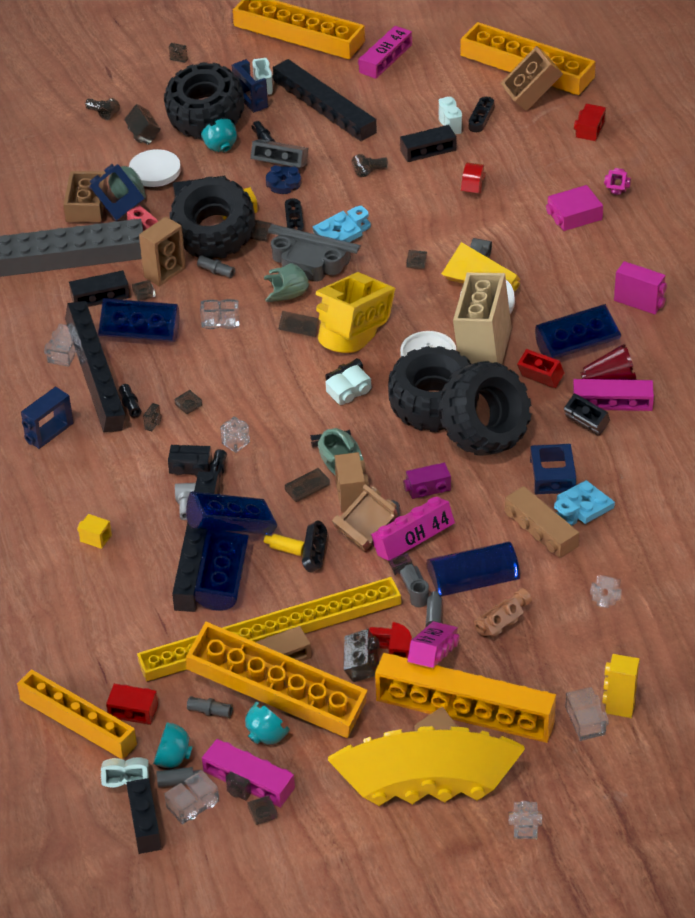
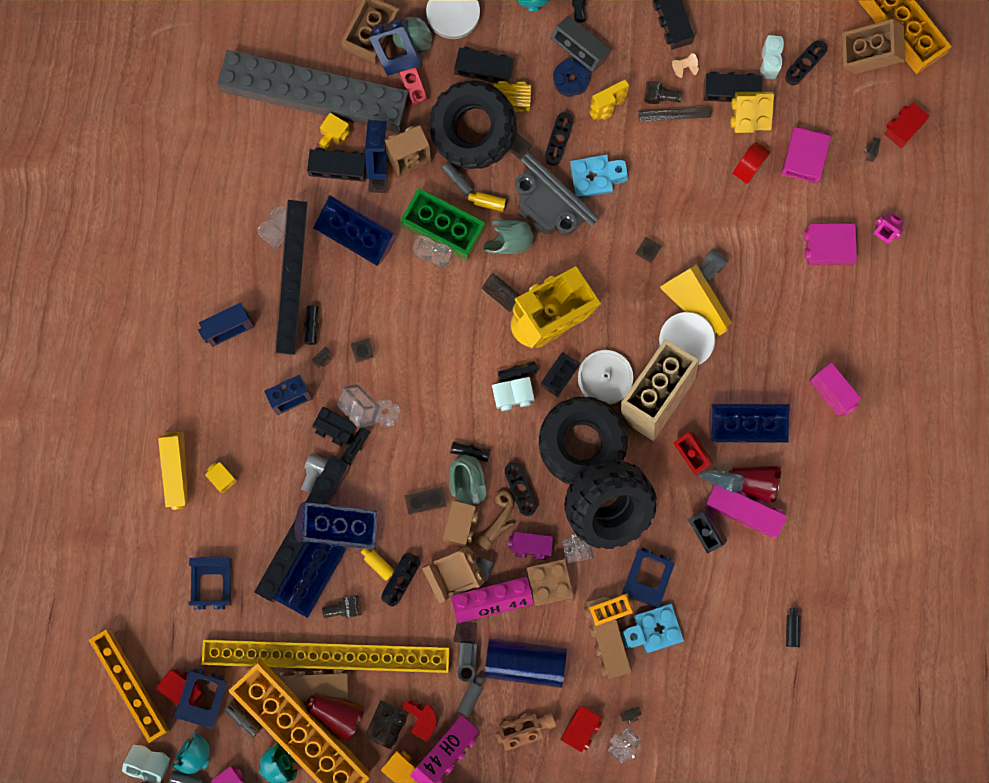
camera: 20 degrees right, 35 degrees up
(43, 535) = (173, 469): none -> yellow slope
(85, 266) = (333, 130): none -> yellow brick
(117, 599) = (210, 566): none -> dark blue window
(131, 460) = (289, 398): none -> dark blue window
(133, 274) = (376, 150): none -> dark blue window
(156, 711) = (195, 714): none -> dark blue window
(206, 431) = (358, 406): none -> clear piece
(219, 286) = (442, 223): none -> green brick
(251, 272) = (488, 201): none -> yellow cylinder
(272, 584) = (347, 607): none -> clear smoke pin
(310, 652) = (335, 714): none -> dark red cone
(324, 175) = (604, 102): none -> yellow plate
(382, 140) = (691, 62): none -> light nougat piece
(383, 360) = (559, 374): none -> black hinge
(387, 174) = (675, 113): none -> clear smoke axle
(388, 480) = (498, 526): none -> medium nougat plant
(390, 442) = (512, 486): none -> black beam
(454, 148) = (752, 111): none -> yellow plate
(466, 498) = (549, 583): none -> medium nougat brick
(474, 467) = (576, 550): none -> clear brick
(517, 163) = (806, 154): none -> dark pink brick
(538, 477) = (625, 597): none -> light orange slope
(556, 596) = (581, 728): none -> red brick
(571, 143) = (872, 148): none -> clear smoke plate
(582, 370) = (725, 480): none -> clear light blue slope
(597, 567) = (630, 715): none -> clear smoke plate

